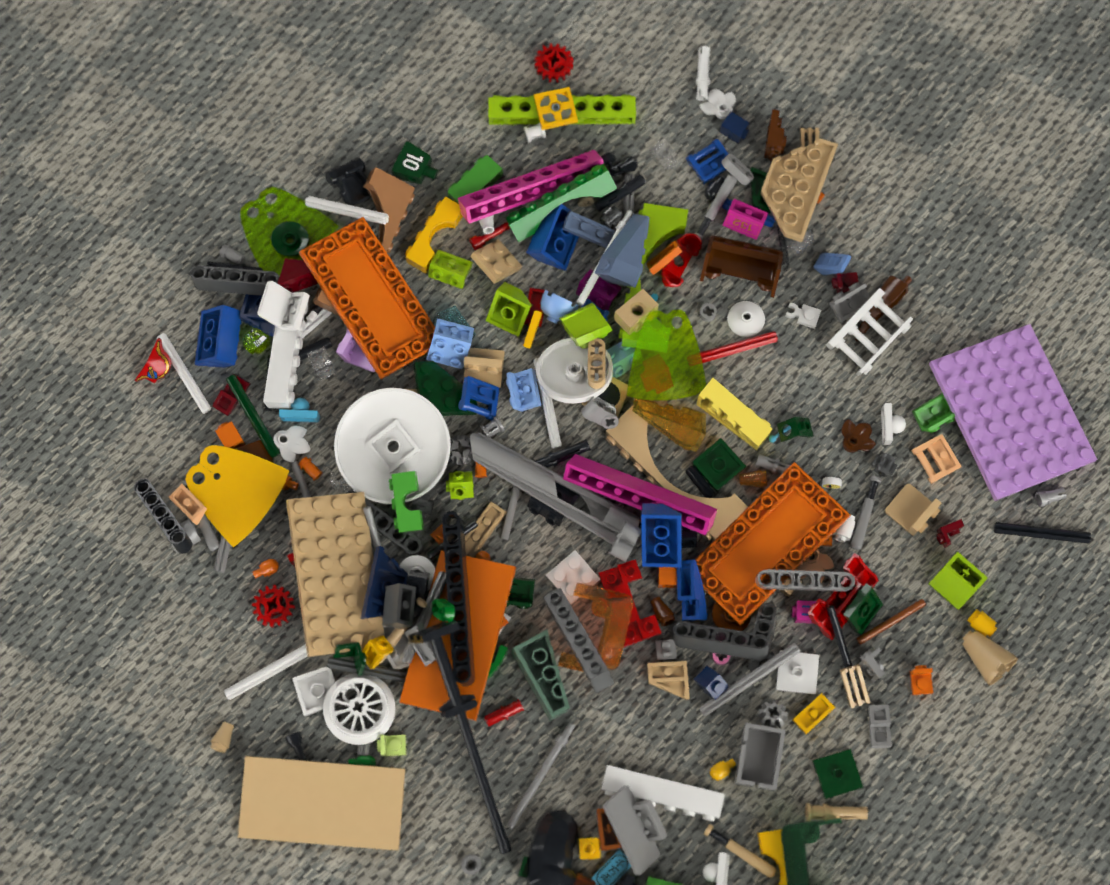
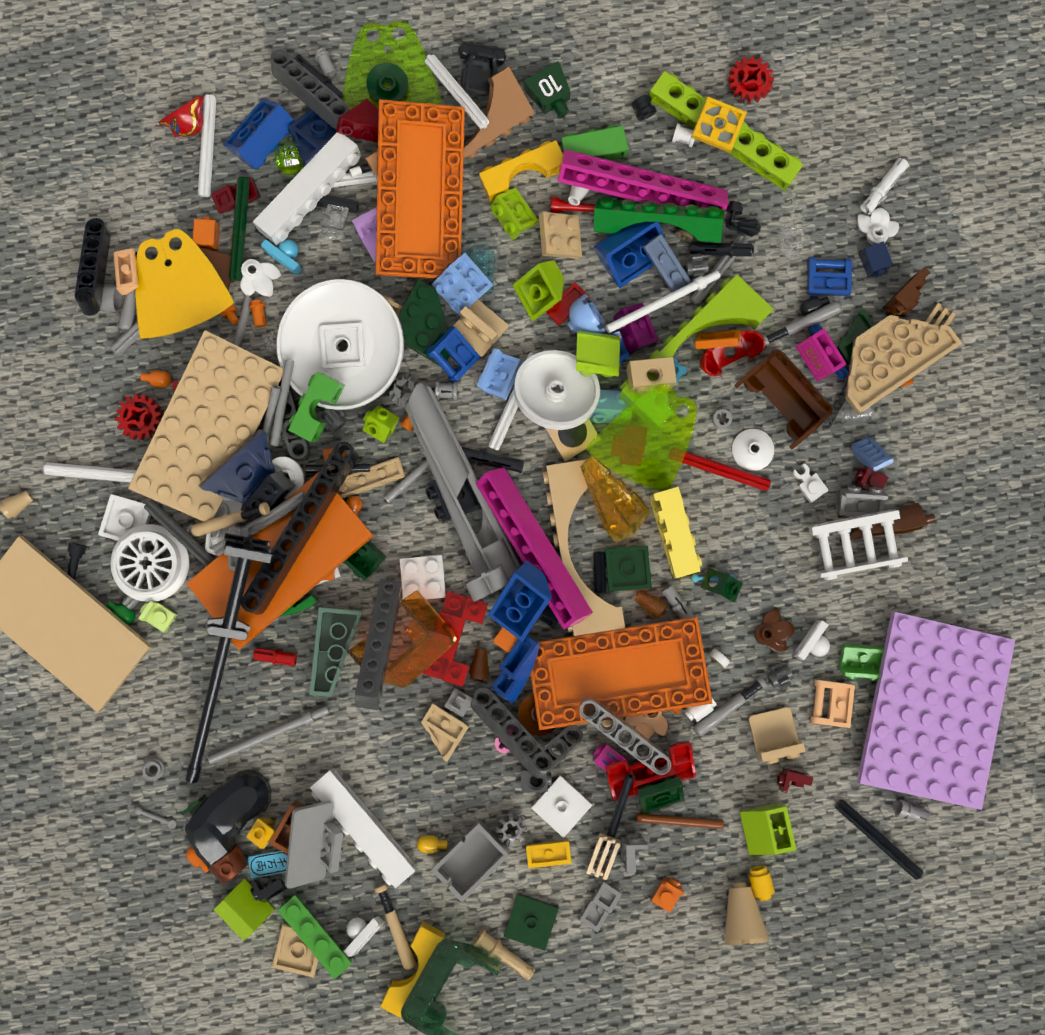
camera: 35 degrees right, 10 degrees up
(282, 307) = (328, 142): white bracket -> none
(355, 651) = (176, 509): dark green bracket -> none
(376, 650) = (196, 523): yellow bracket -> none
(378, 519) = (281, 405): none -> light grey bar
(399, 606) = (239, 499): dark grey brick -> none
(443, 610) = (276, 530): green beam -> none
(491, 132) = (643, 107): none -> black wheel
(532, 329) = (547, 323): yellow tile -> none
(600, 413) = (551, 446): light grey piece -> none
(601, 370) = (581, 389): tan beam -> none
(623, 257) = (678, 313): sand blue wedge -> none
(711, 682) = (475, 762): dark blue brick -> none
(737, 169) = (848, 302): light grey beam -> none
(750, 679) = (512, 786): light grey axle -> none

